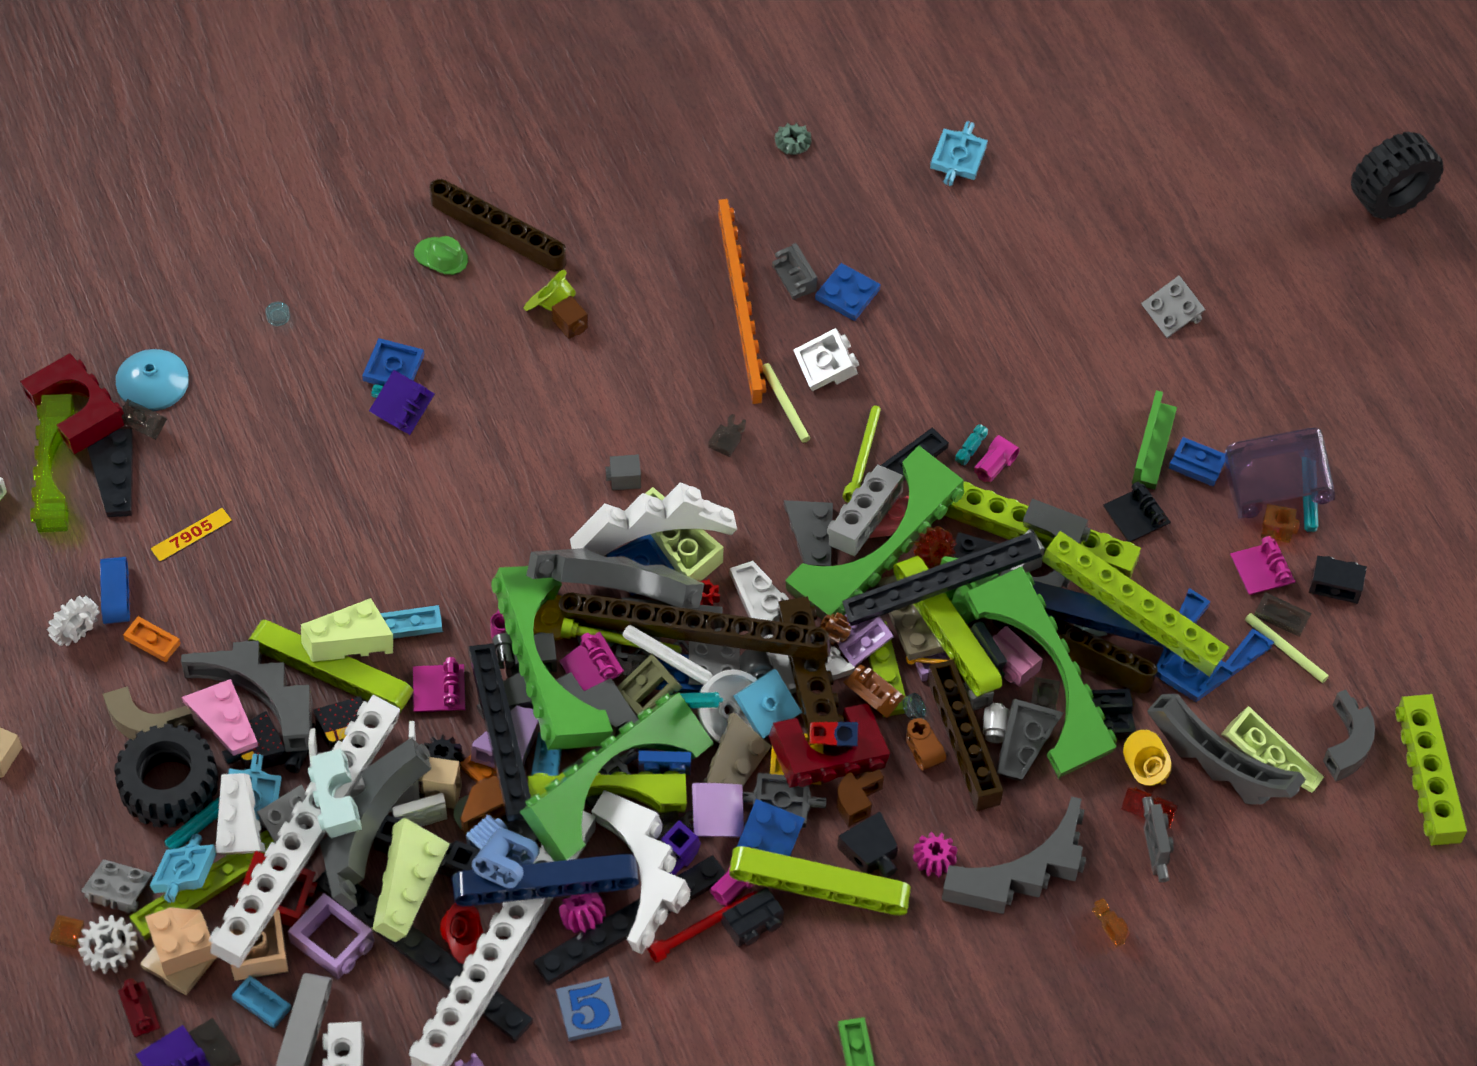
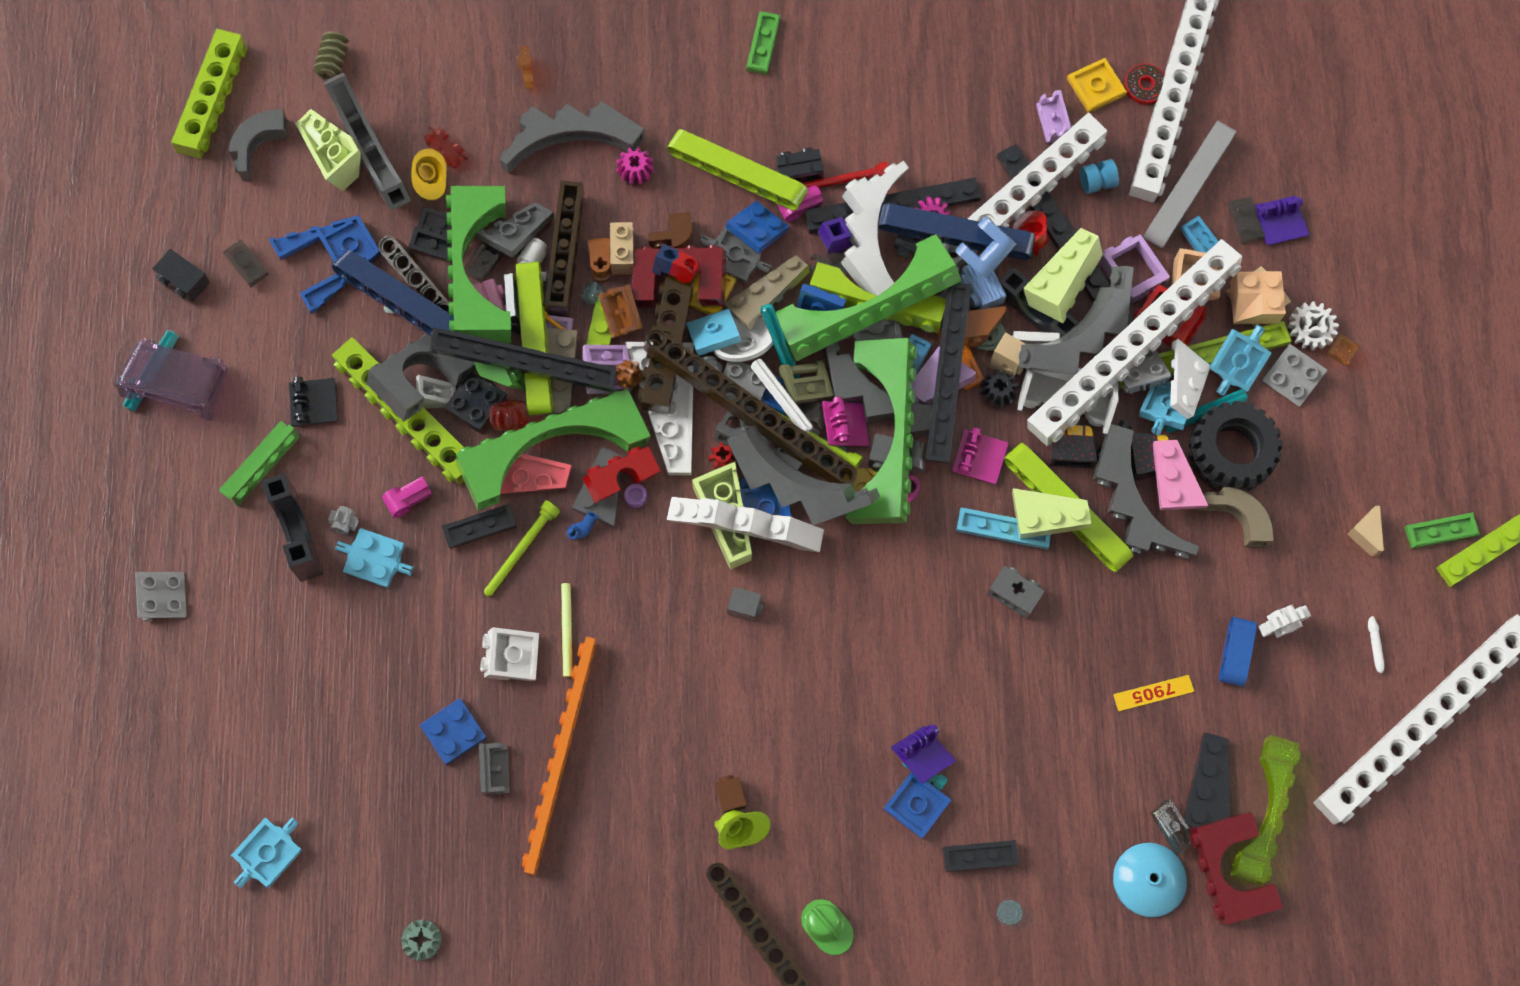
camera: 160 degrees left, 15 degrees up
(138, 1008) = (1298, 268): dark red hinge -> none
(151, 639) = (1215, 590): orange plate -> none
(319, 344) = (980, 856): none -> black plate
(337, 814) = (1112, 326): light aqua arch -> none
(358, 569) = (1003, 589): none -> dark grey brick
(412, 1022) = (1102, 175): none -> dark azure wheel
(588, 1009) = (951, 148): sand blue tile -> none
(718, 810) = (793, 252): lavender slope -> none
(727, 438) = (637, 608): clear smoke plate -> none
(776, 537) = (635, 496): none -> medium lavender tile
(788, 553) = (638, 465): none -> red arch
(815, 488) = (582, 528): none -> blue arm
(865, 510) = (537, 476): light grey brick -> none
(870, 846) = (682, 190): black torso -> none
(906, 760) = (621, 248): none -> tan brick
(971, 444) = (420, 522): teal axle -> none
(998, 401) = (374, 558): none -> medium azure plate
(1044, 417) = (343, 520): none -> light grey gear
(1102, 405) = (300, 547): none -> black arch
(1135, 603) = (373, 280): lime brick -> none
(1157, 840) = (458, 106): dark grey plate -> none
(1198, 461) = (231, 429): blue plate -> none
(1262, 567) = (235, 312): dark pink hinge -> none
(1276, 515) = (207, 346): clear orange brick -> none
(1287, 648) = (259, 238): yellowish green bar -> none
(1327, 852) = (330, 55): none -> olive piece

